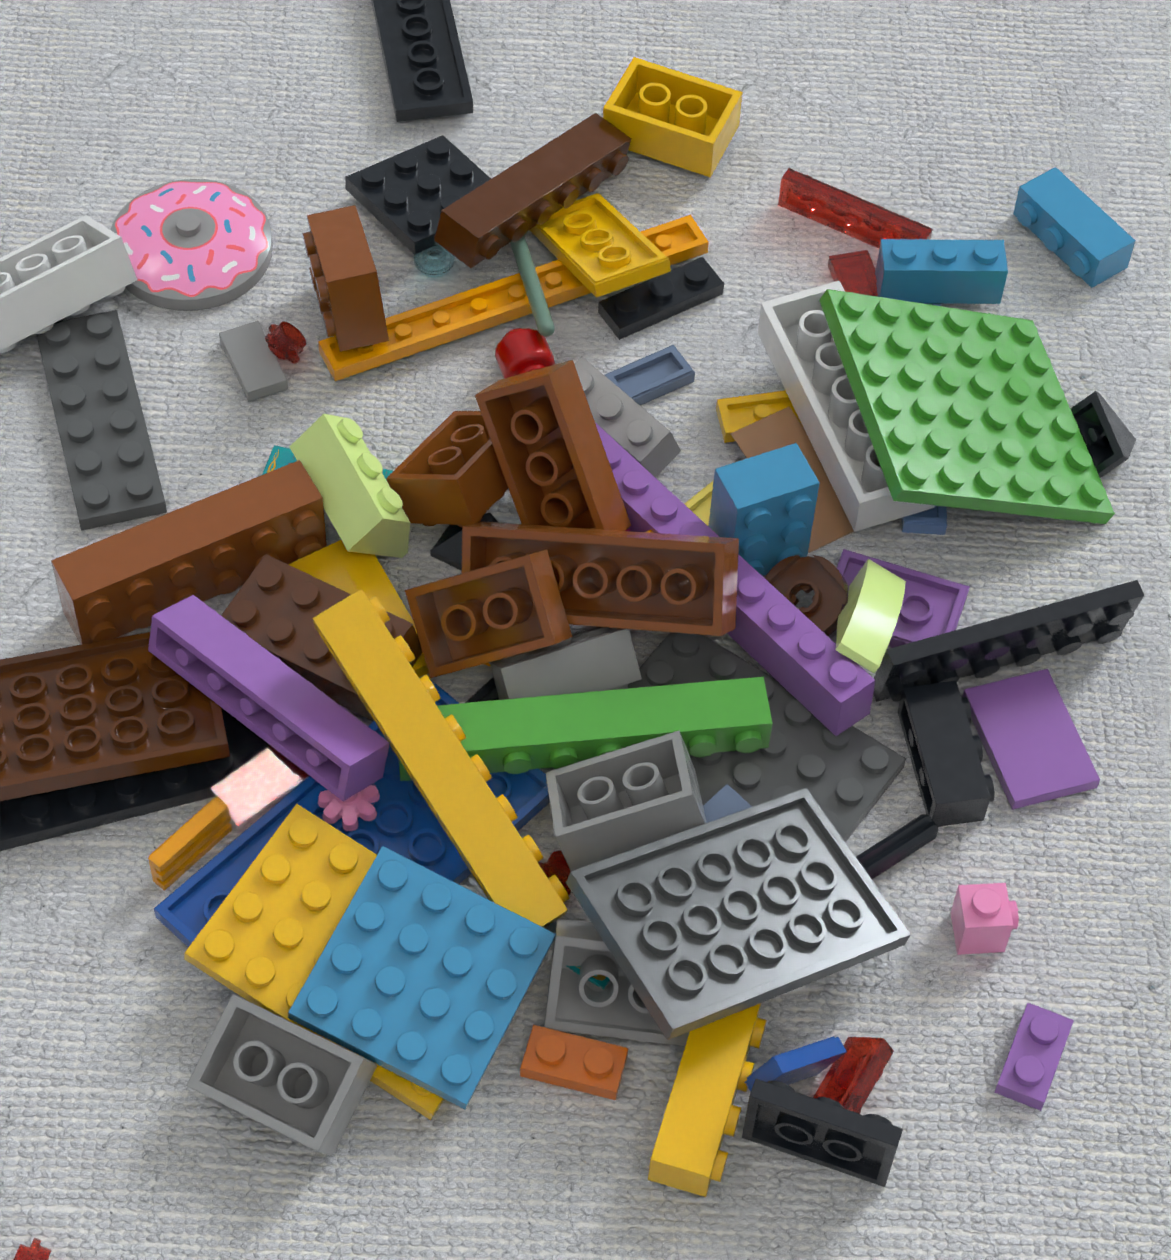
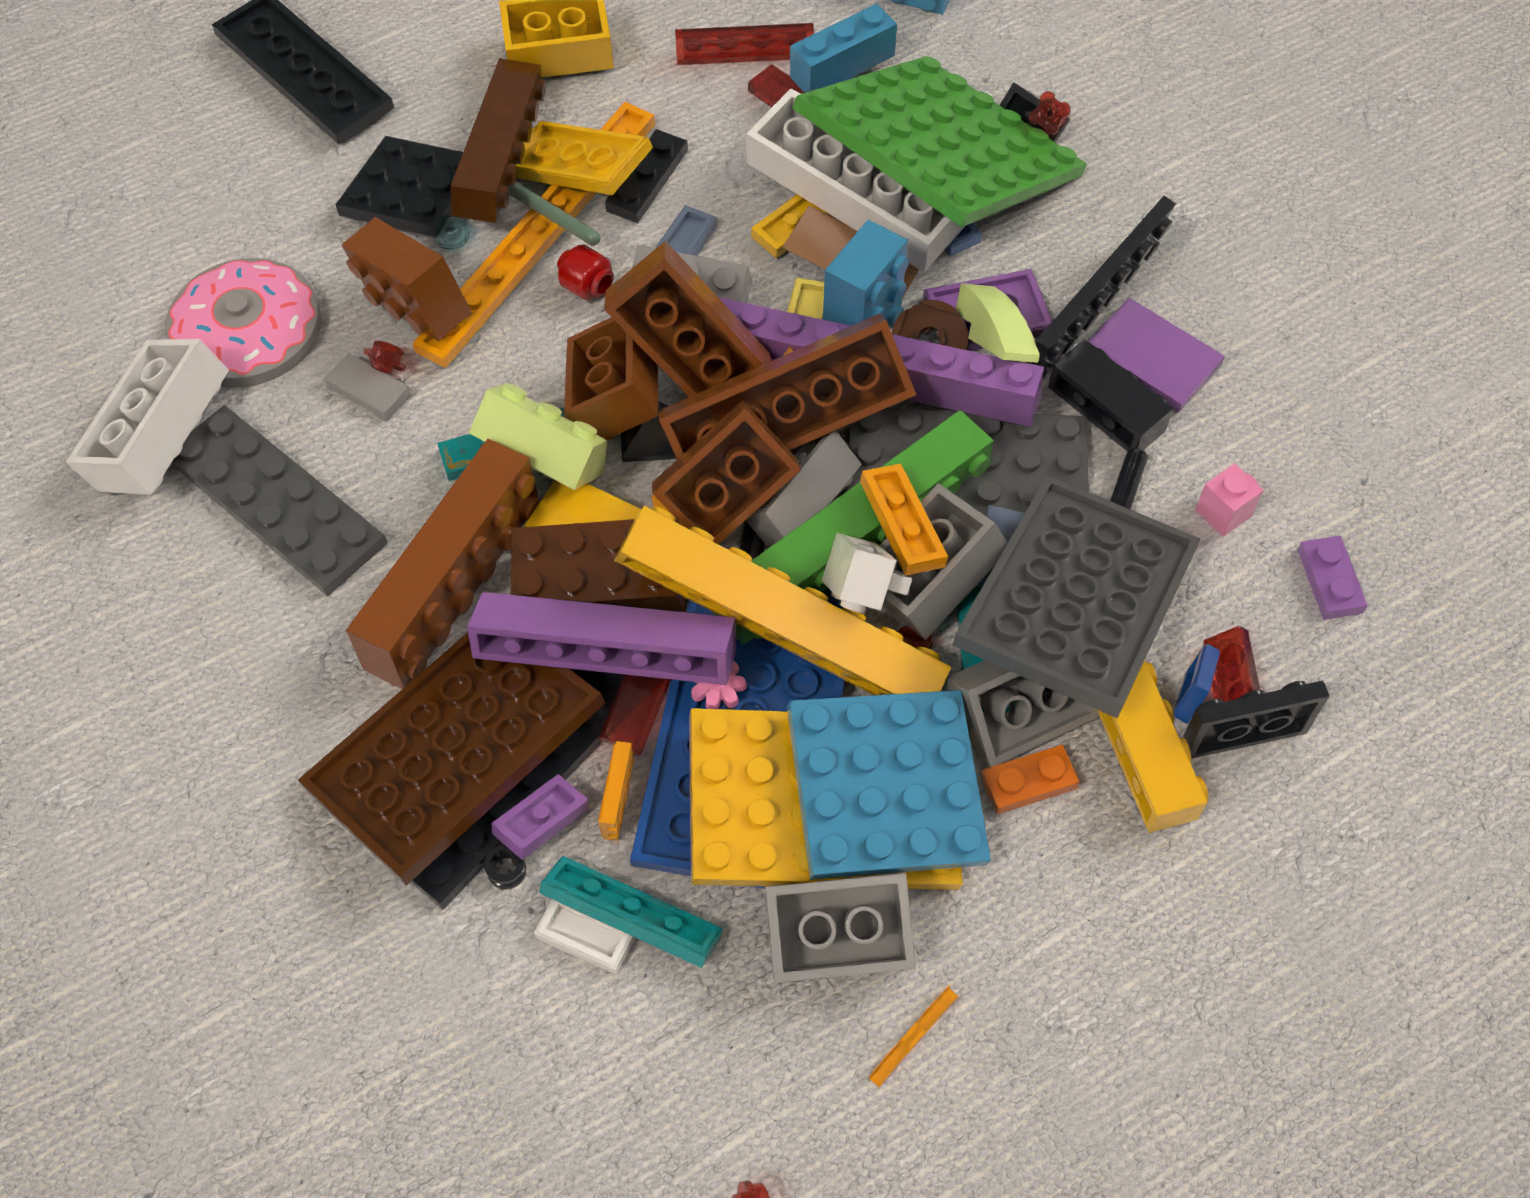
camera: 30 degrees left, 5 degrees up
(49, 866) = (508, 881): none -> black bush
(73, 951) = (584, 937): none -> white tile
(107, 825) = (540, 816): none -> medium lavender plate
(124, 955) = (631, 911): none -> teal tile
(286, 1219) = (913, 1036): none -> light orange piece
(535, 767) = (862, 573): none -> white brick
(615, 743) = (903, 519): none -> light orange plate
(1112, 448) = (1056, 120): none -> clear red plate

